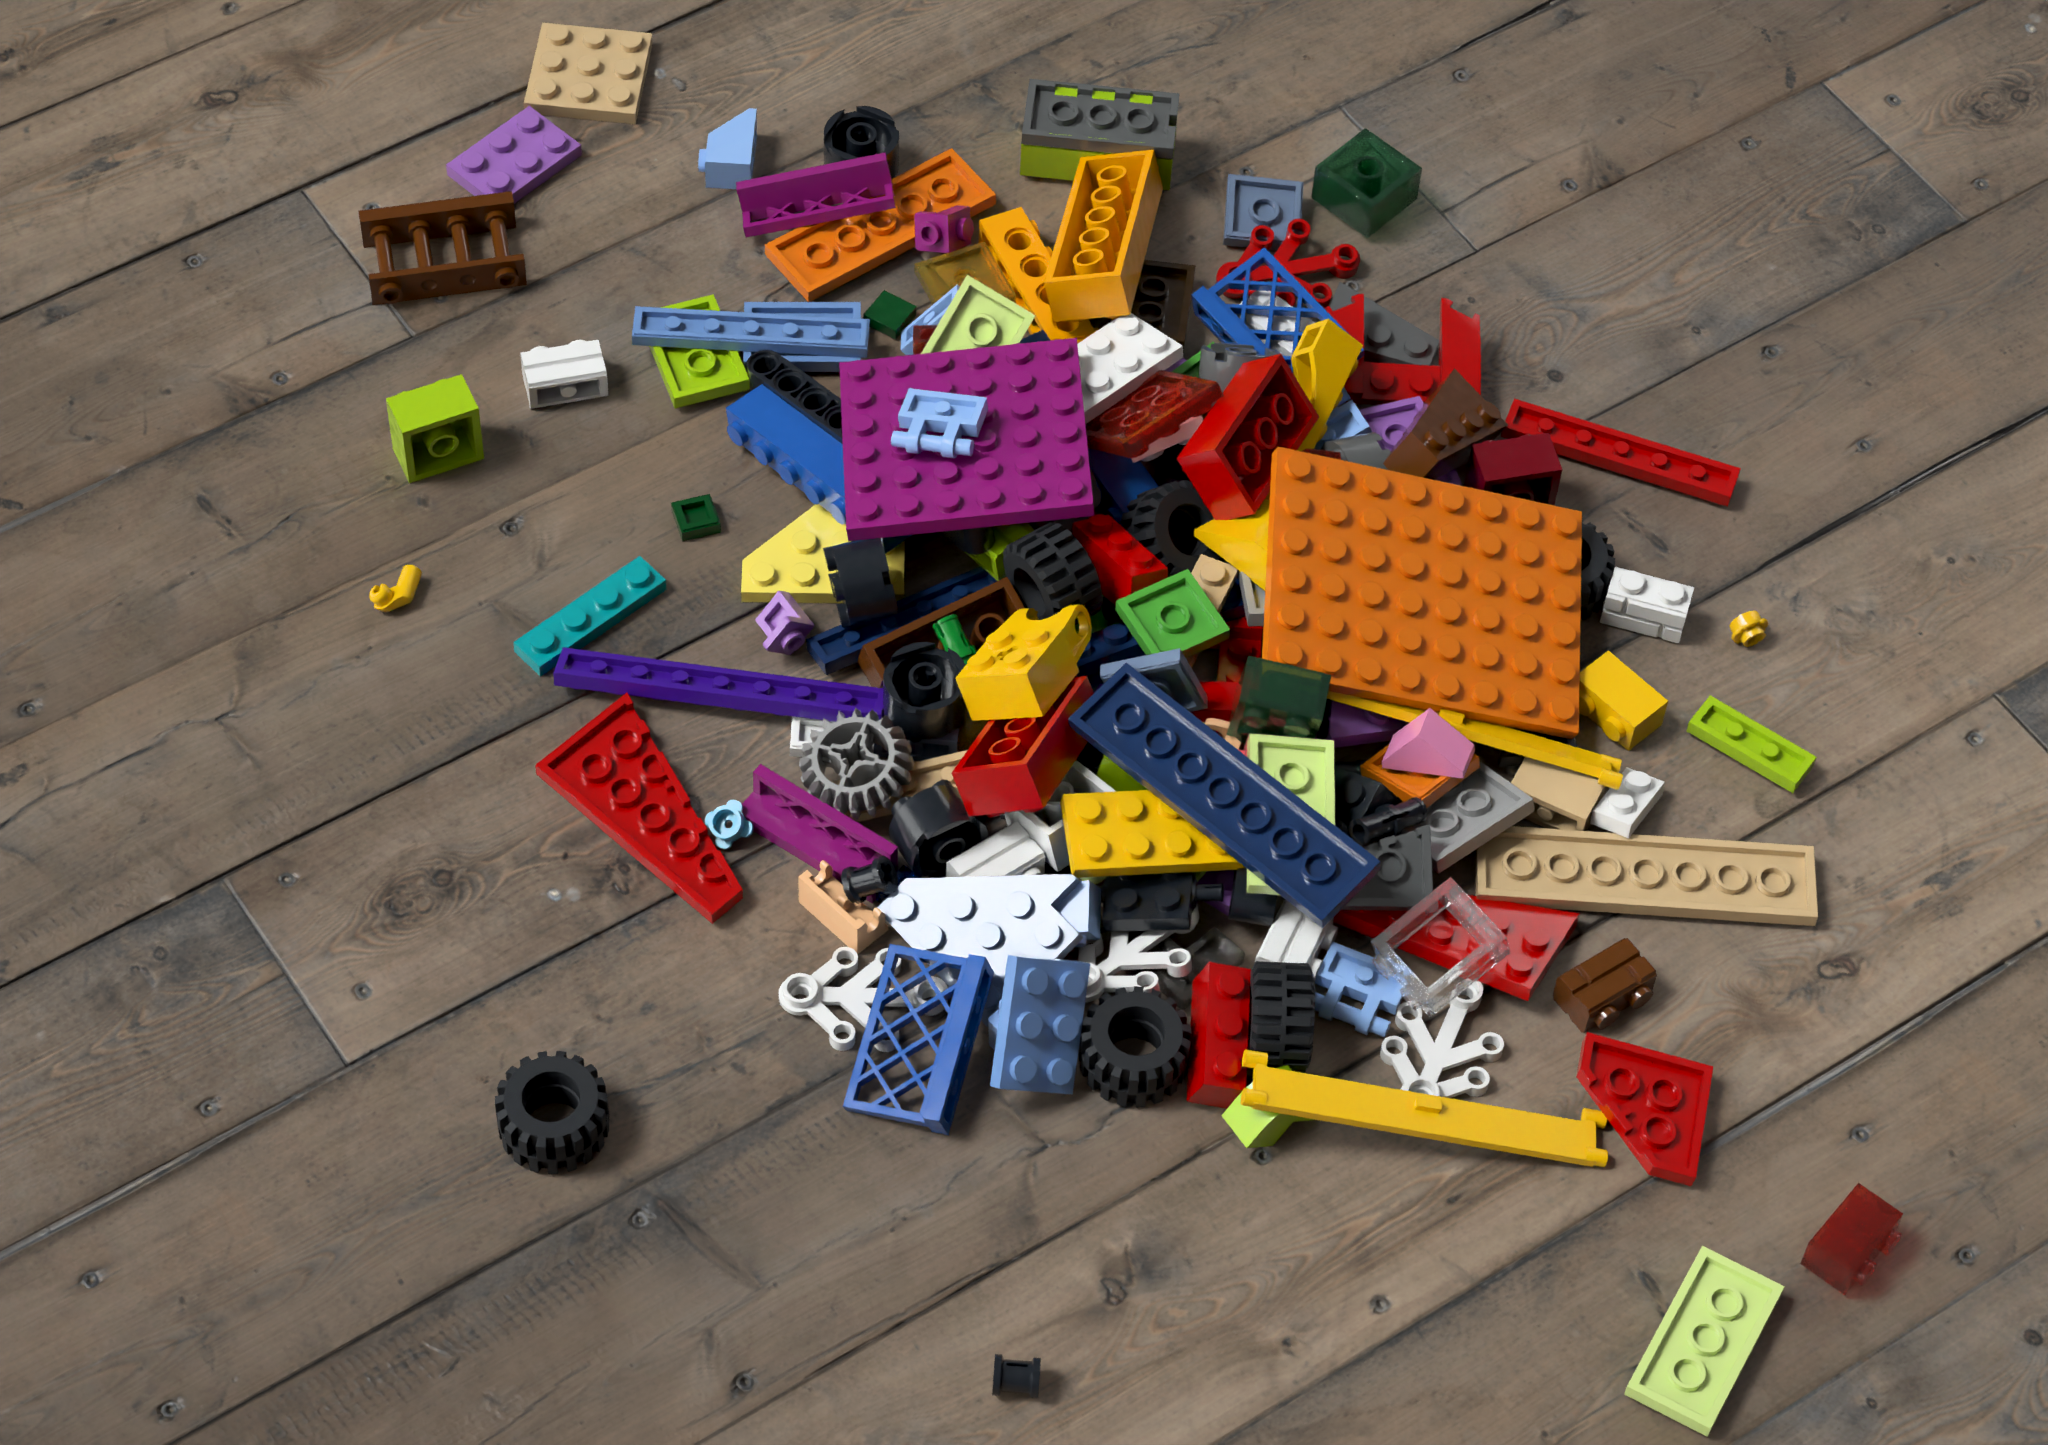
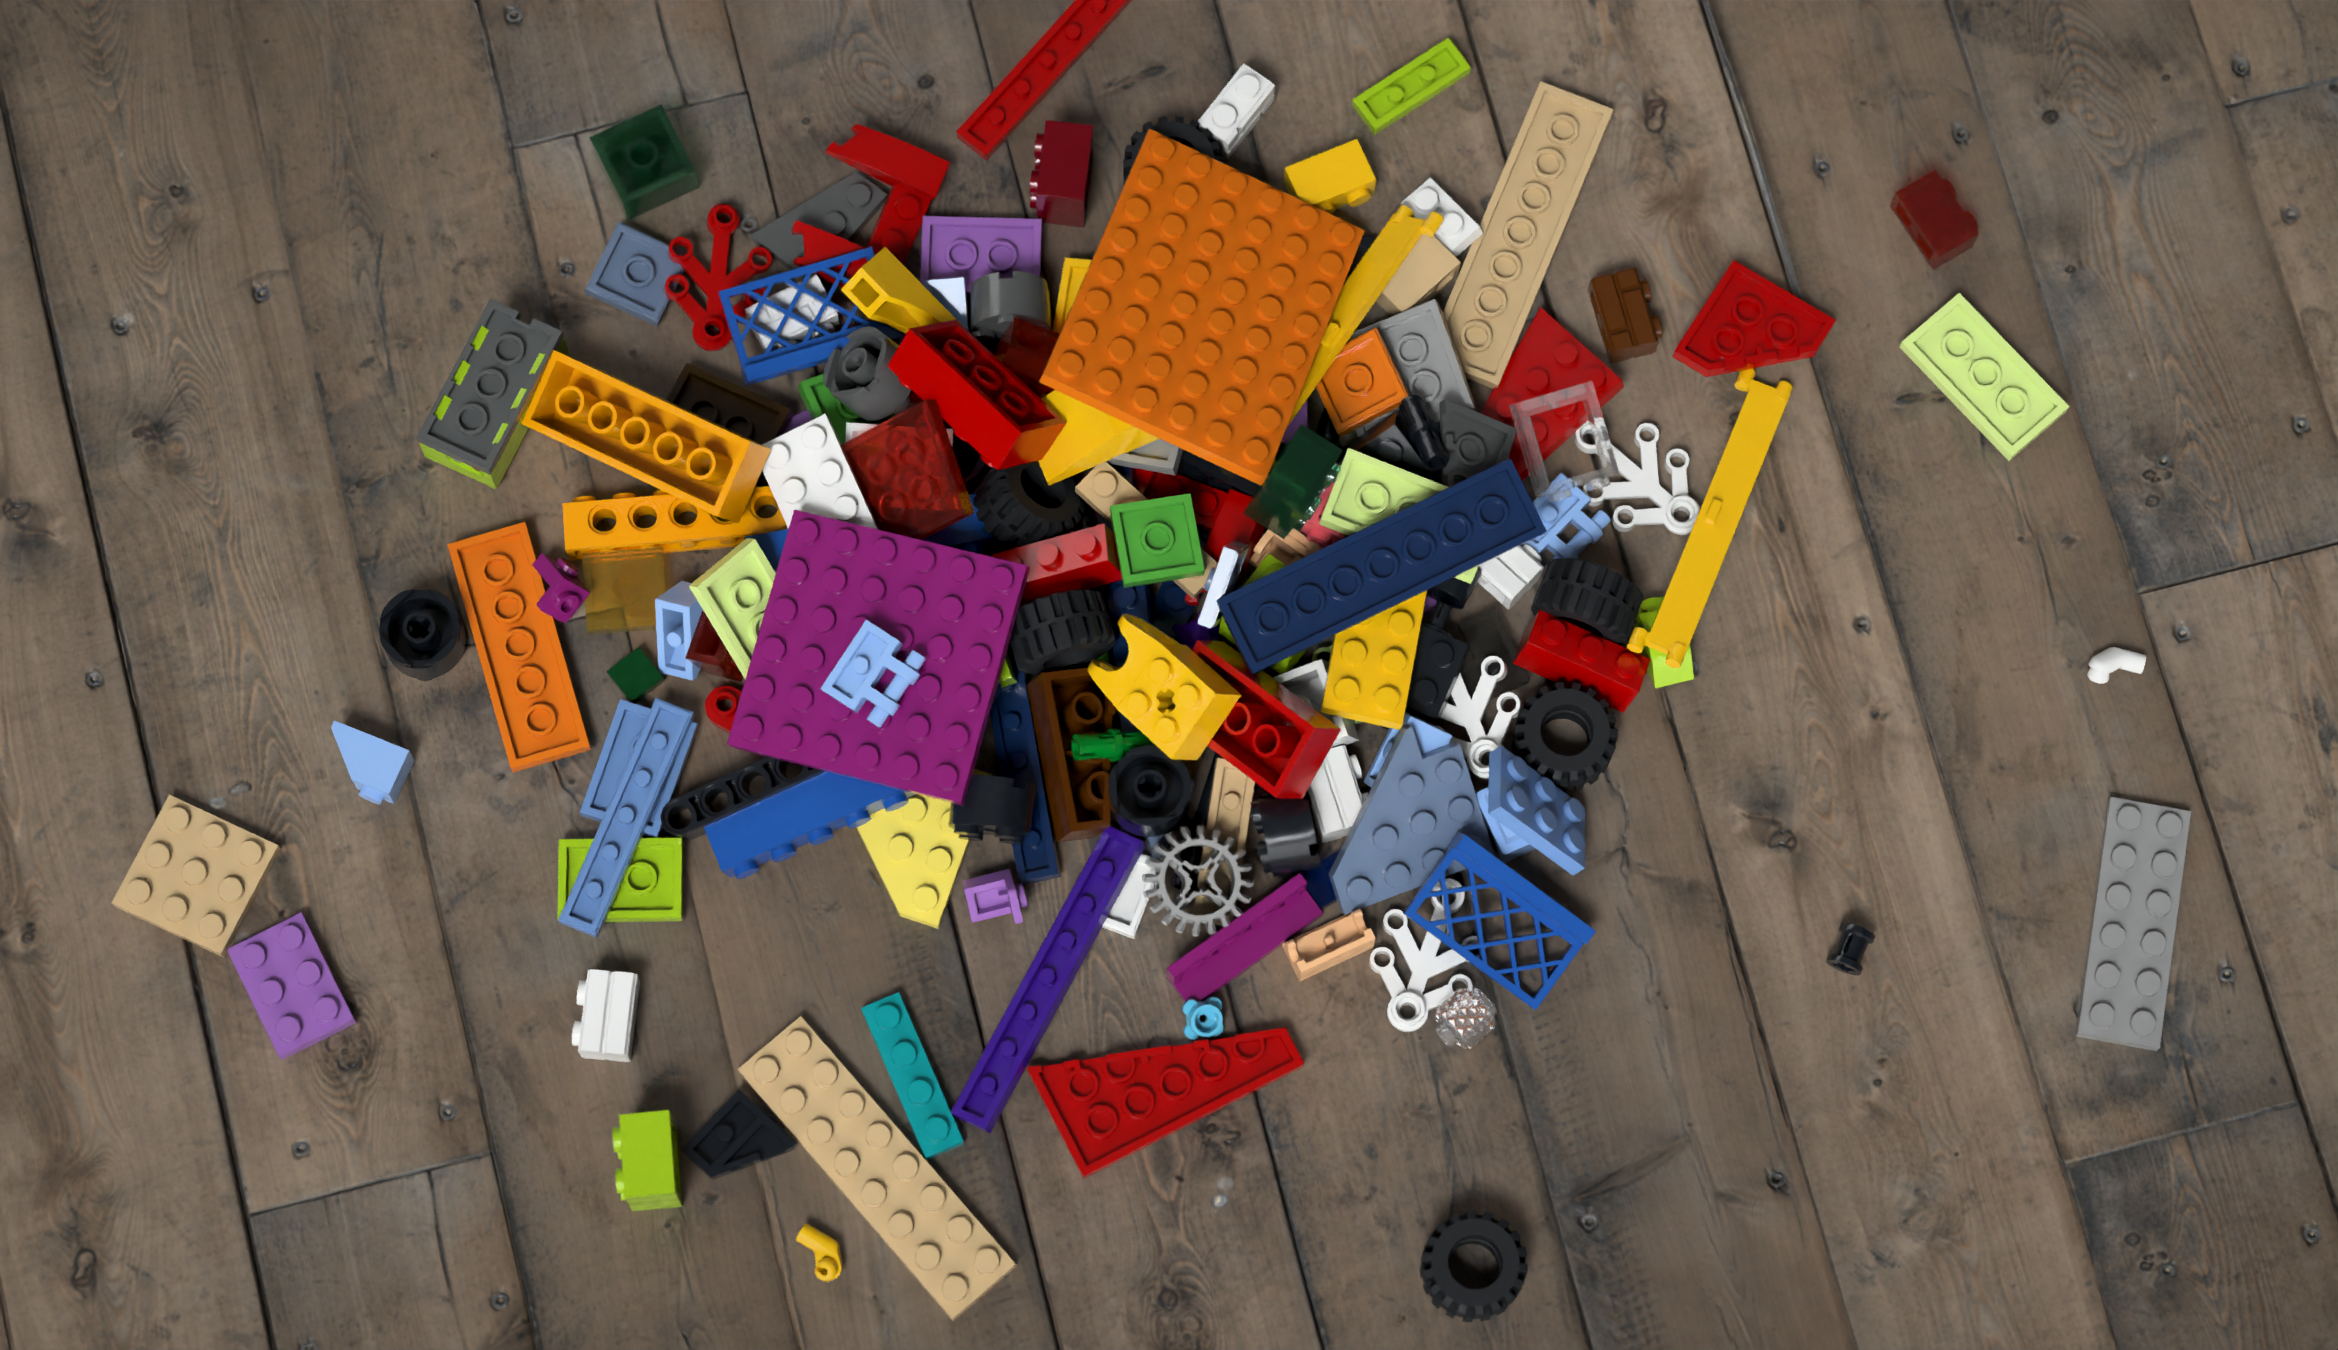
camera: 70 degrees left, 20 degrees up
(438, 220) = (364, 1066): reddish brown fence -> none
(483, 497) = (736, 1139): none -> black wing
(489, 613) = (877, 1168): none -> tan plate
(696, 517) = (825, 941): dark green tile -> none
(807, 1039) = (1465, 1018): none -> clear head
(816, 191) = (460, 698): magenta fence -> none
(869, 879) = (1322, 909): black bush -> none
(1429, 747) = (1356, 369): bright pink slope -> none
(1445, 430) = (1002, 214): reddish brown wedge -> none
(1748, 628) = (1285, 34): yellow plate -> none

